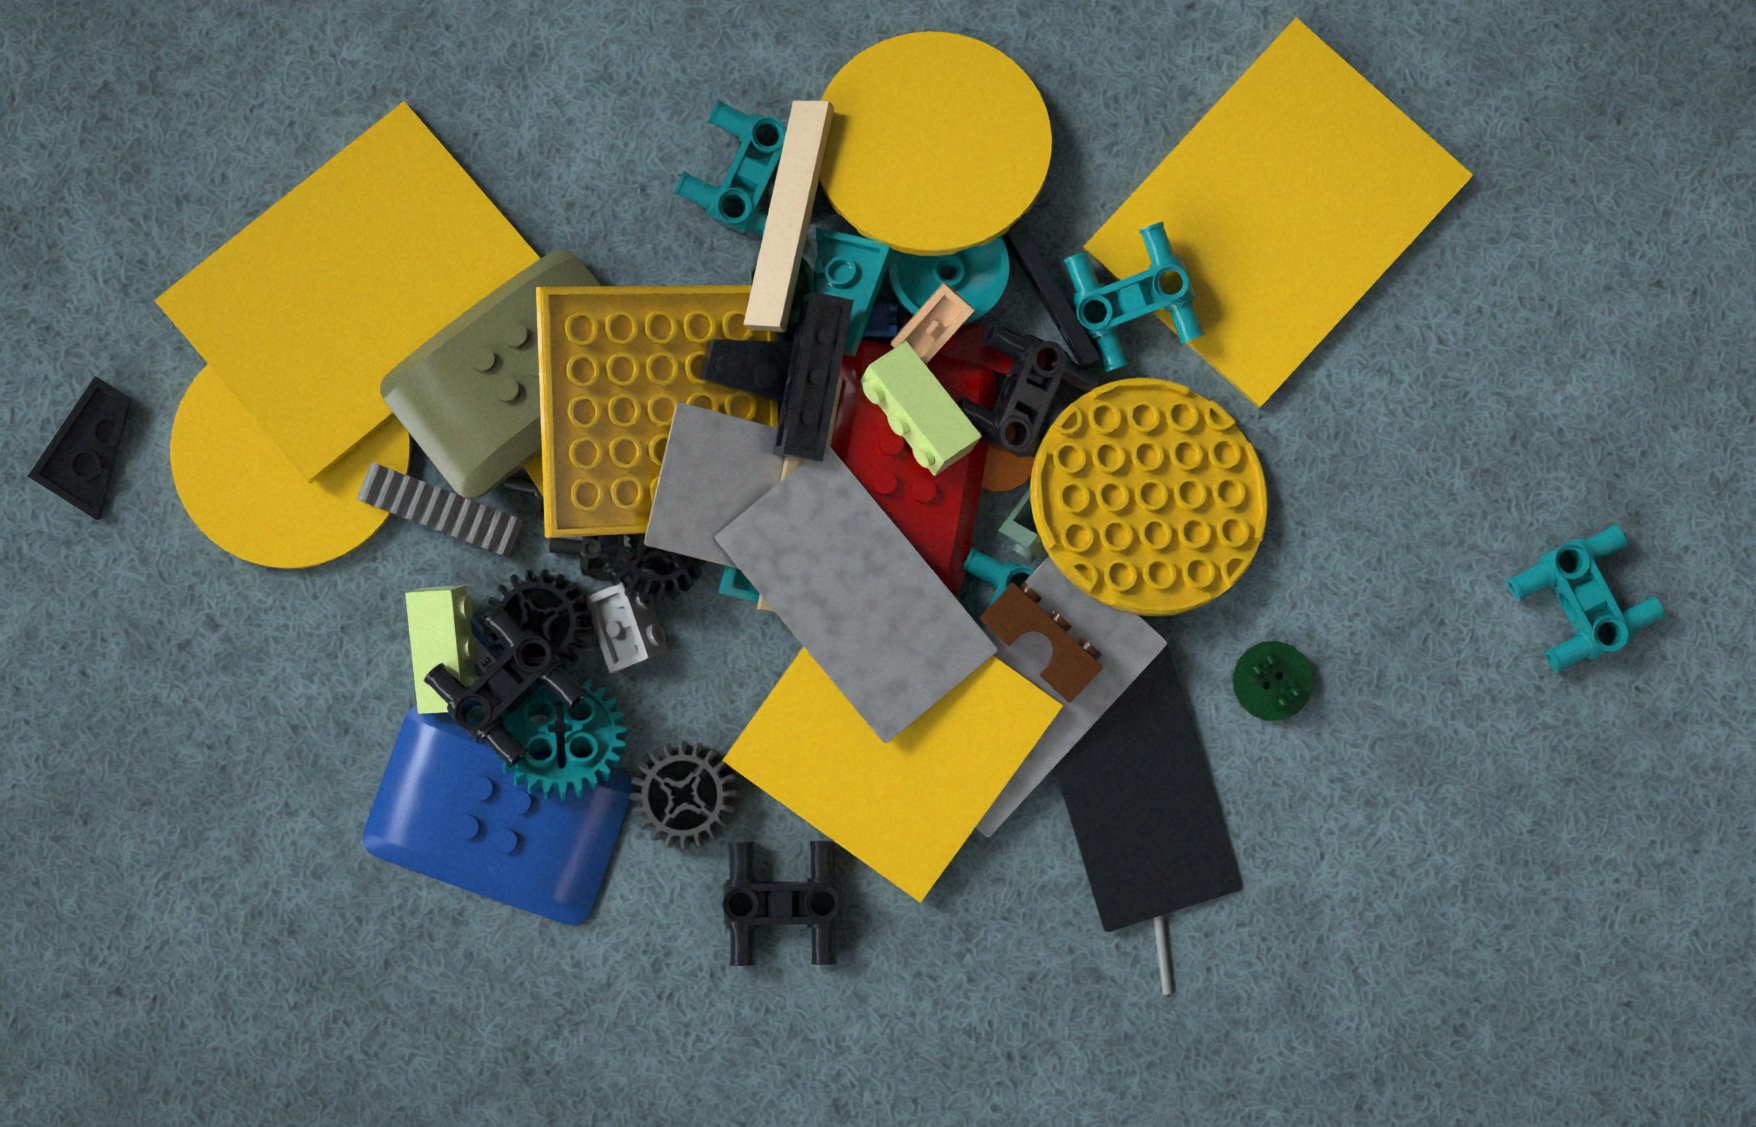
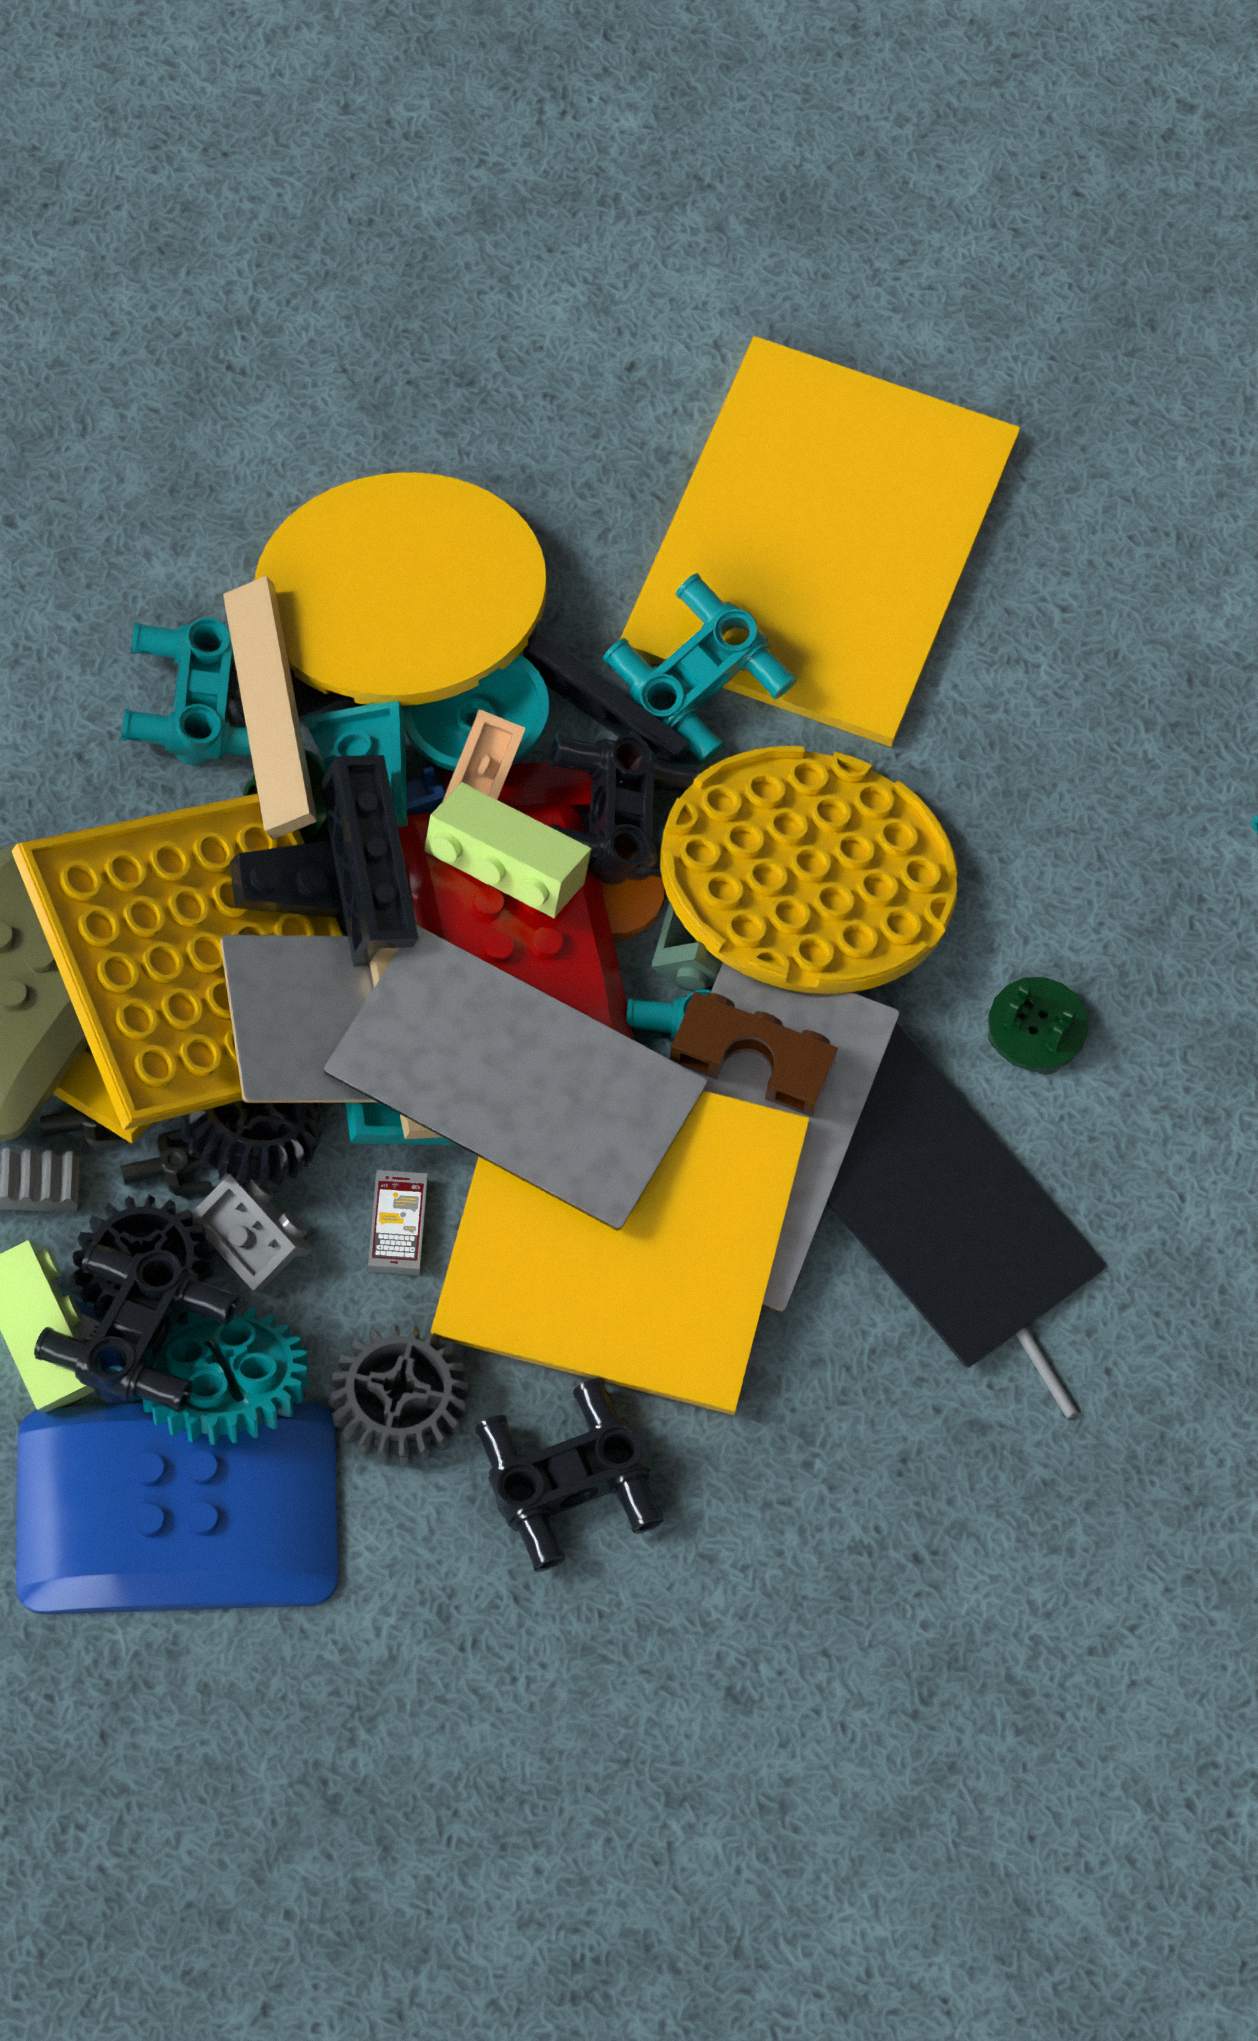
camera: 30 degrees left, 20 degrees down
(736, 657) = (398, 1222): none -> tile

